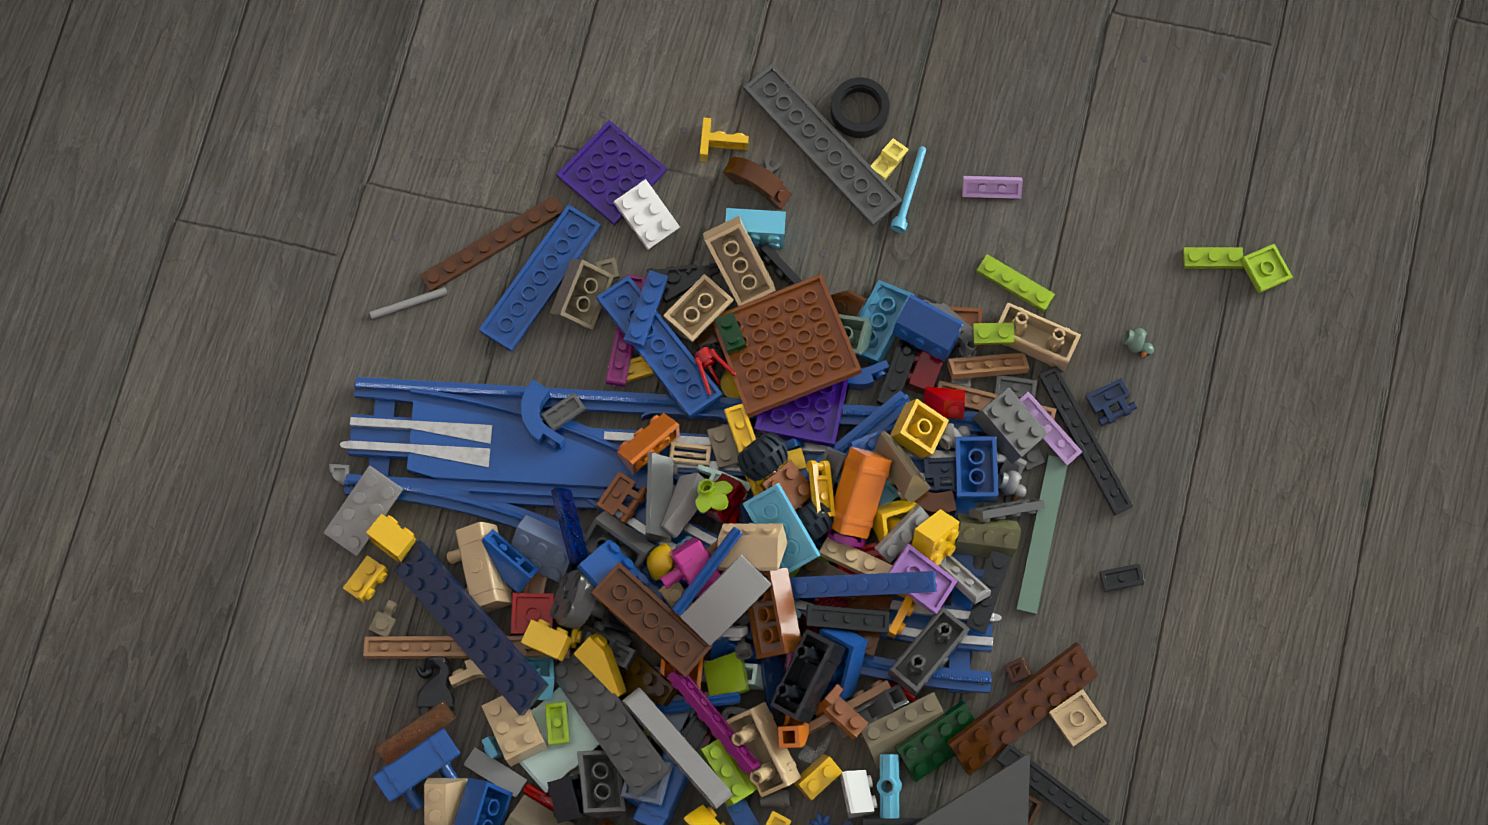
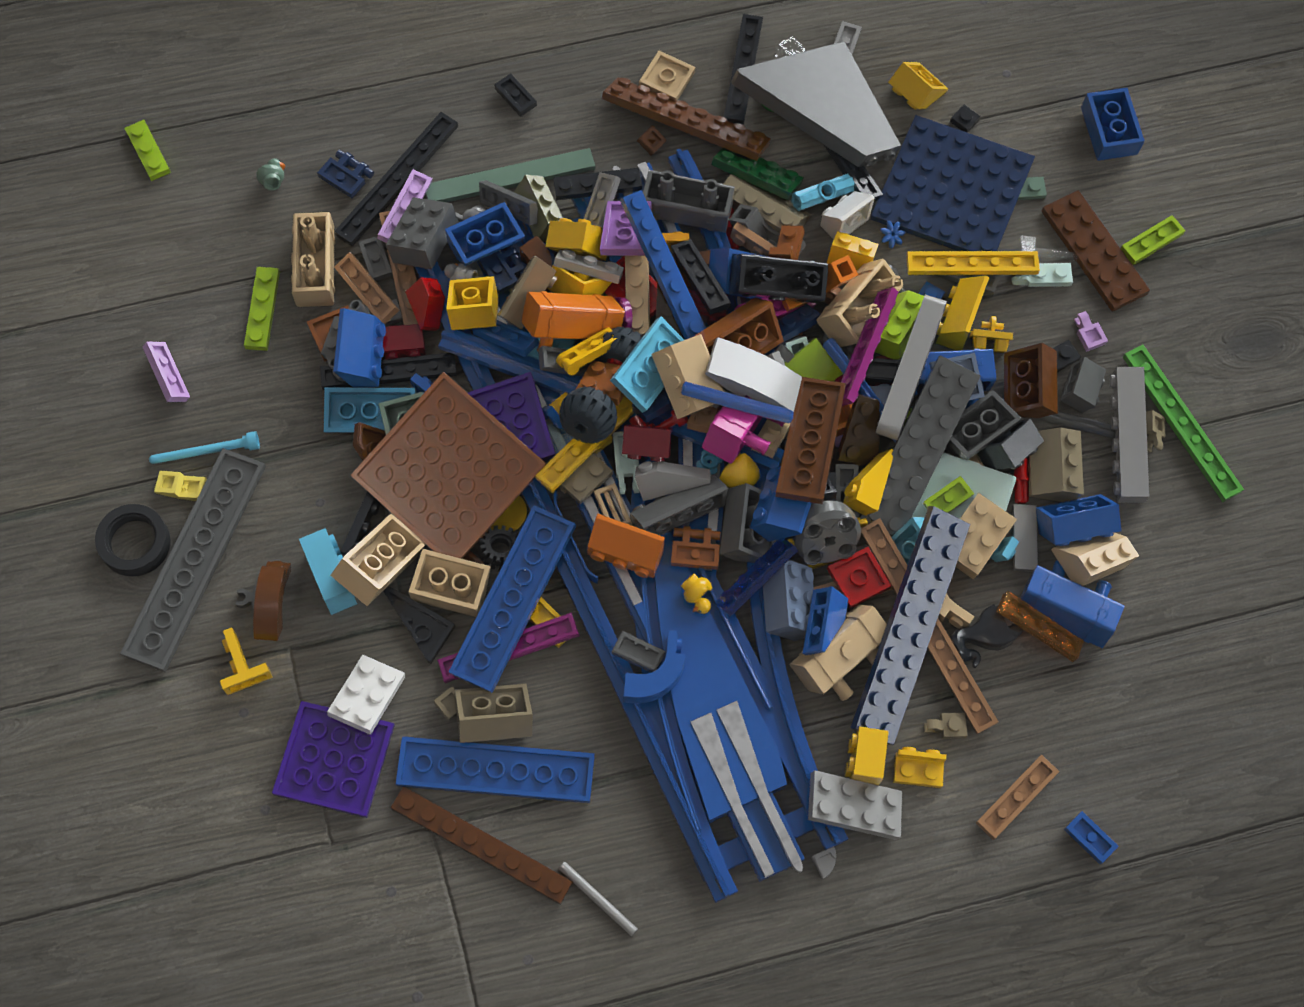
camera: 120 degrees left, 5 degrees down
(241, 674) = (1091, 837): none -> blue plate
(302, 638) = (1017, 797): none -> medium nougat plate
(547, 640) = (881, 540): yellow brick -> none
(587, 477) = (694, 590): none -> yellow animal
(646, 309) = (479, 629): blue plate -> none
(705, 357) = (504, 541): red plant -> none
(714, 497) = (655, 440): lime plate -> none
(730, 333) = (462, 532): dark green plate -> none
(993, 333) = (333, 287): lime plate -> none
(1266, 268) = (137, 100): lime tile -> none

